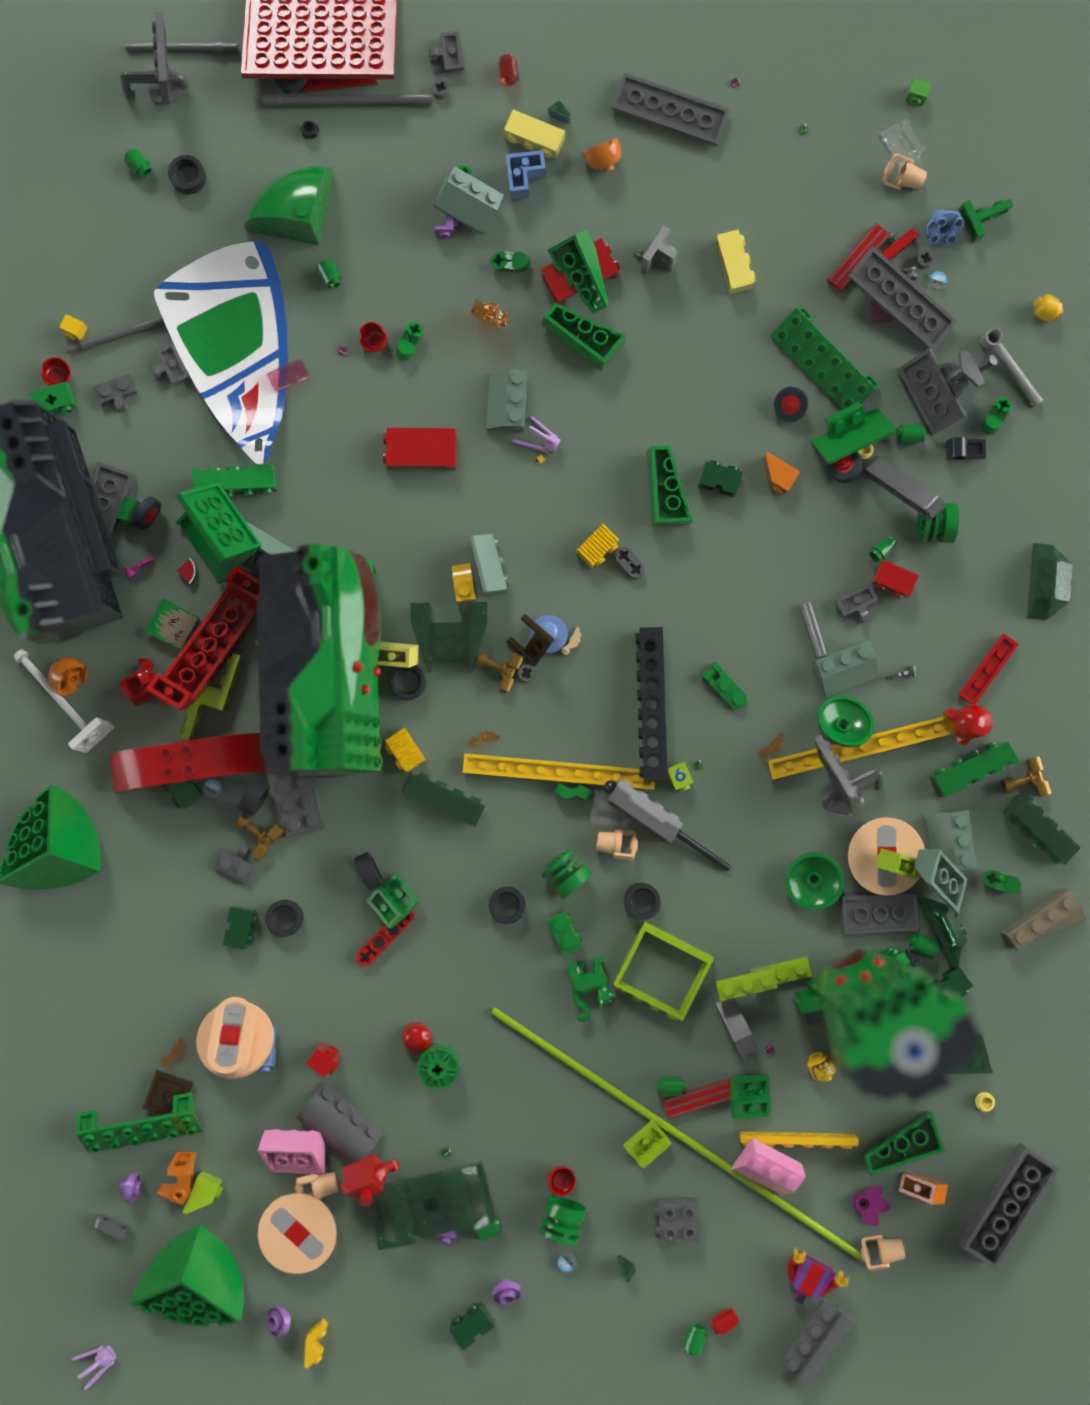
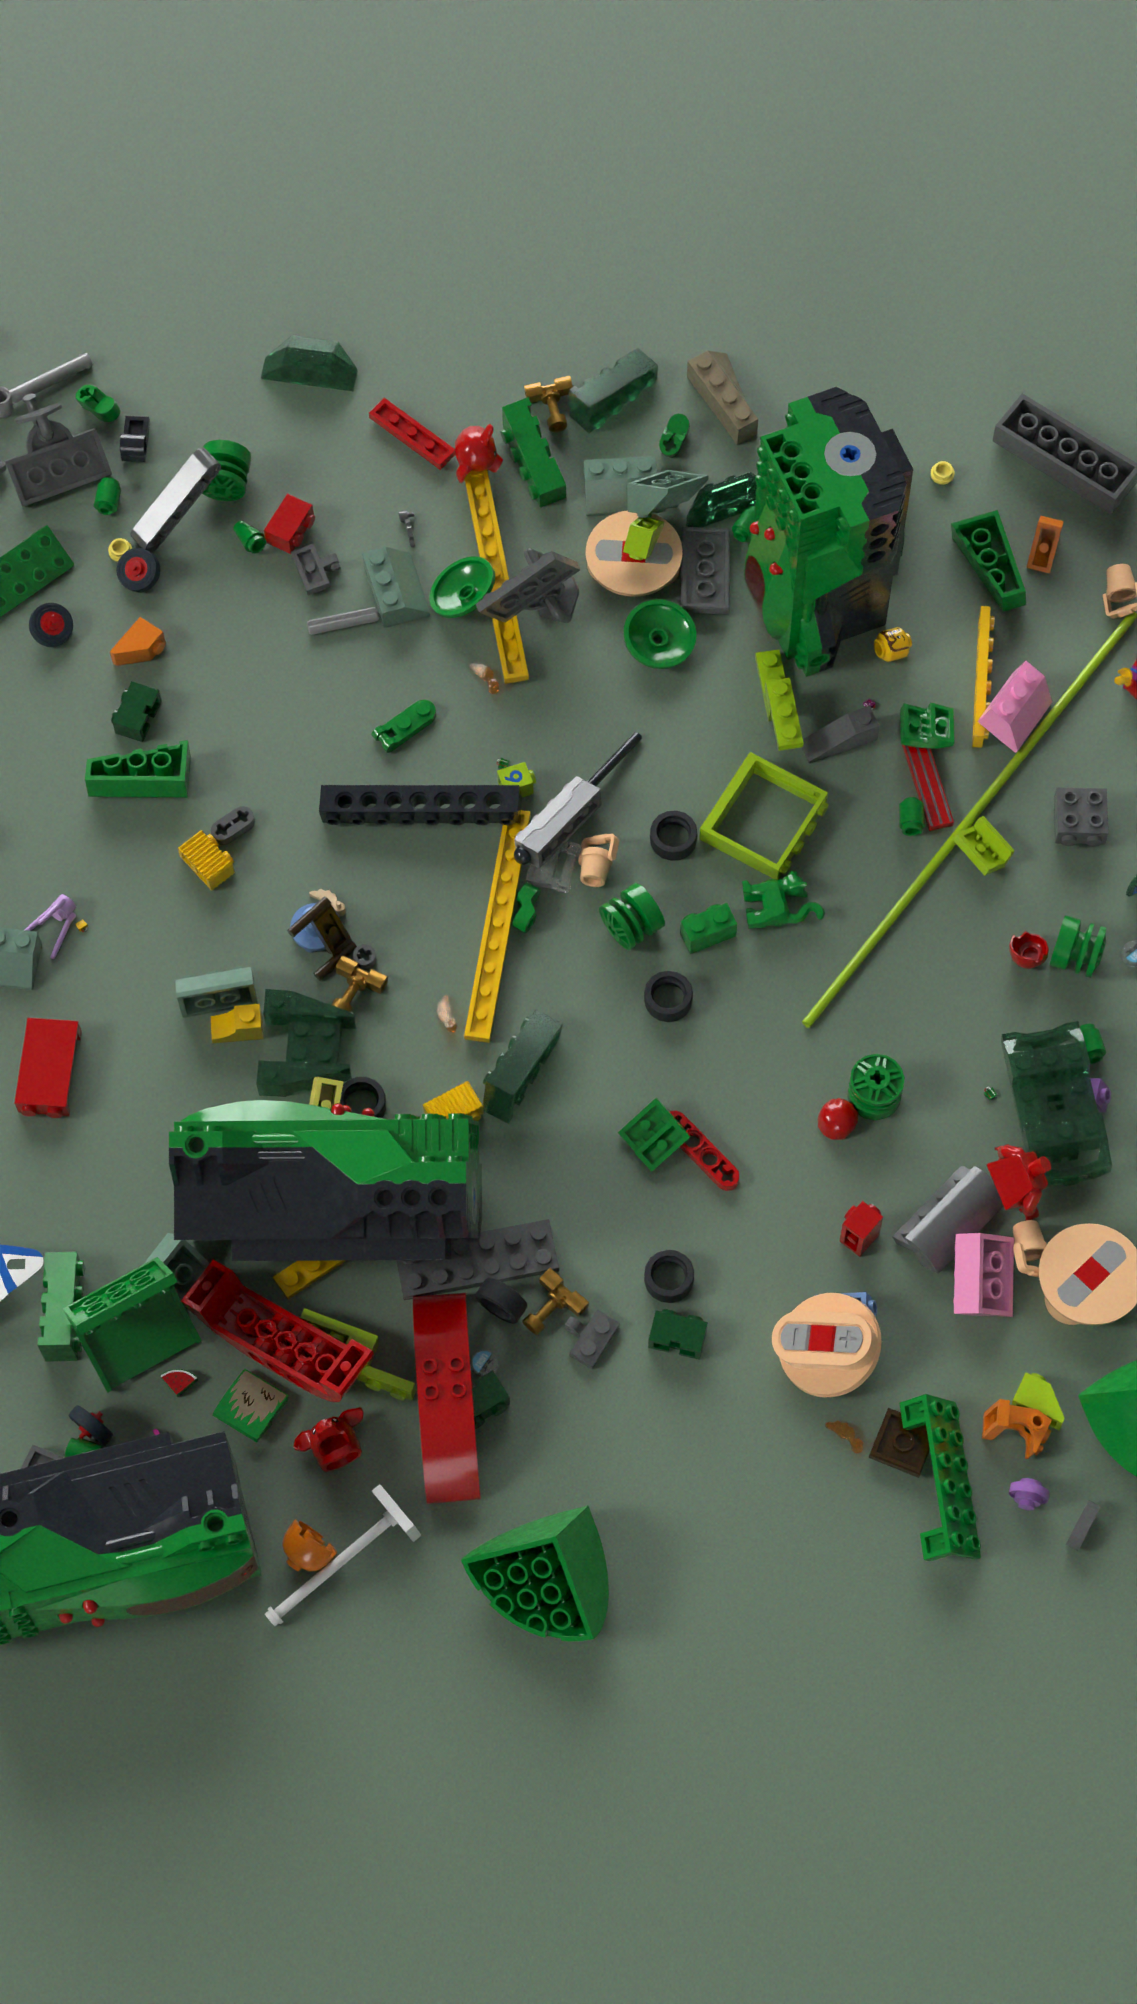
camera: 85 degrees left, 20 degrees down
(368, 871) = (611, 1158): black tyre -> none
(852, 431) = (98, 558): green bracket -> none
(873, 1204) = (1065, 601): magenta plate -> none

